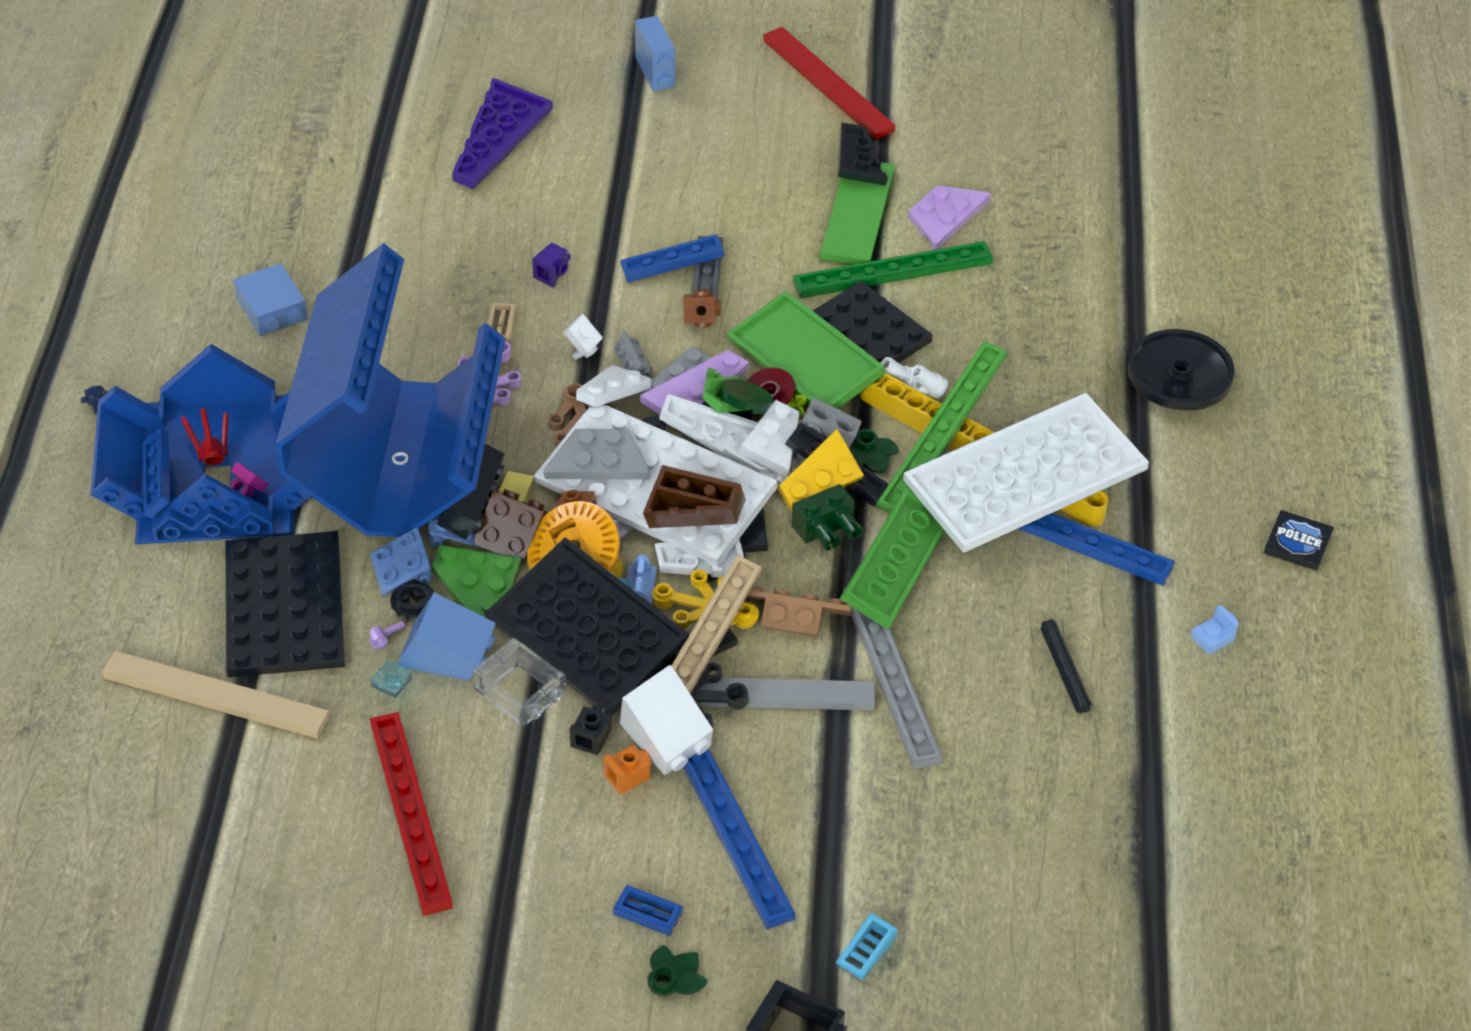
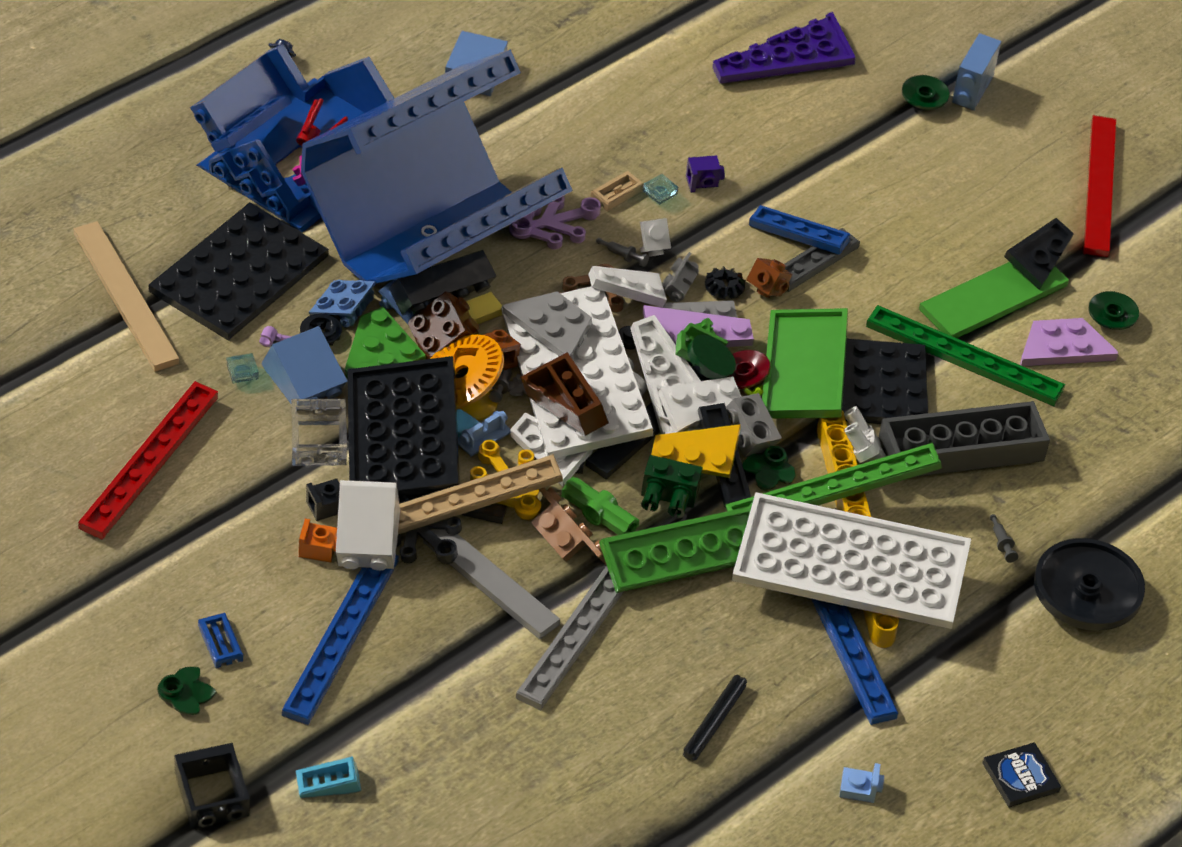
camera: 40 degrees right, 0 degrees up
(533, 299) = (660, 189): none -> clear light blue plate
(564, 367) = (628, 253): none -> flat silver piece
(632, 94) = (925, 92): none -> dark green dish
(667, 344) = (717, 288): none -> black gear
(798, 574) = (599, 507): none -> bright green piece
(952, 164) = (1113, 310): none -> dark green dish
(987, 314) = (971, 436): none -> dark grey brick
(1085, 383) = (1004, 542): none -> dark grey piece

